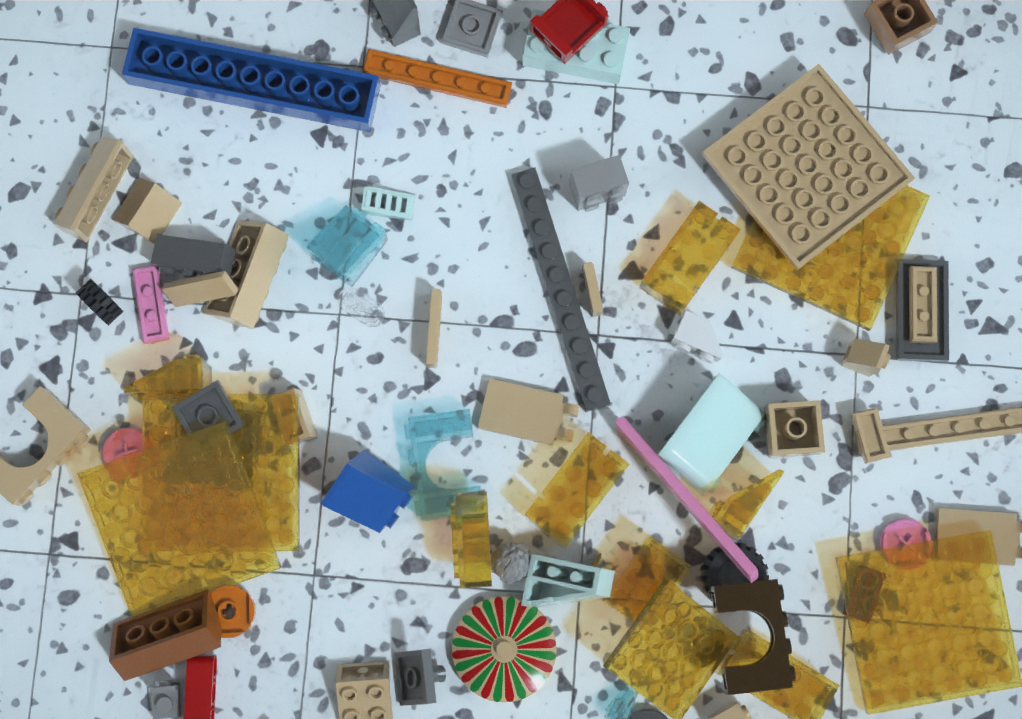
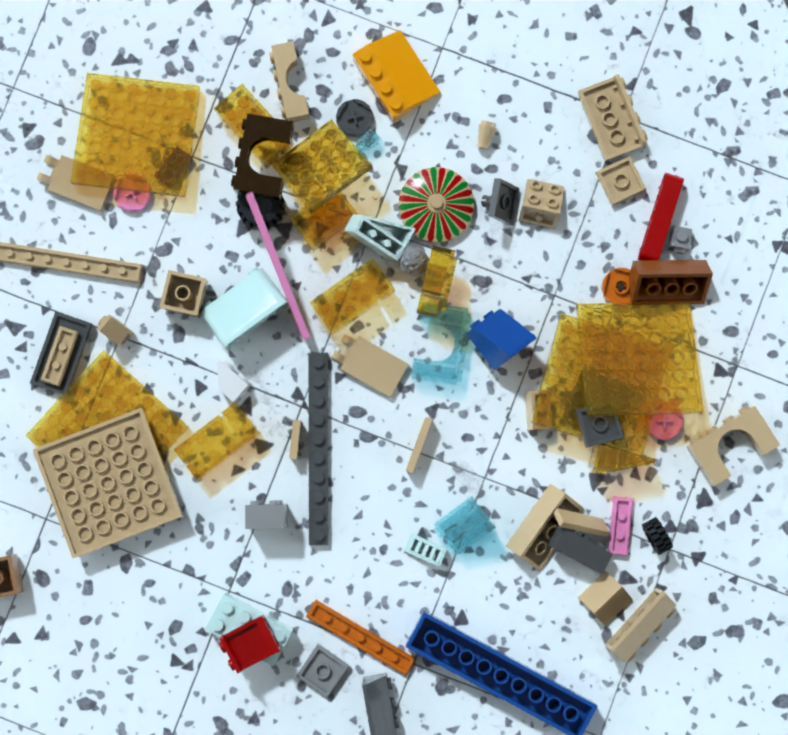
camera: 160 degrees left, 5 degrees up
(738, 510) = (239, 250): clear yellow slope -> none
(870, 435) = (130, 274): tan tile -> none

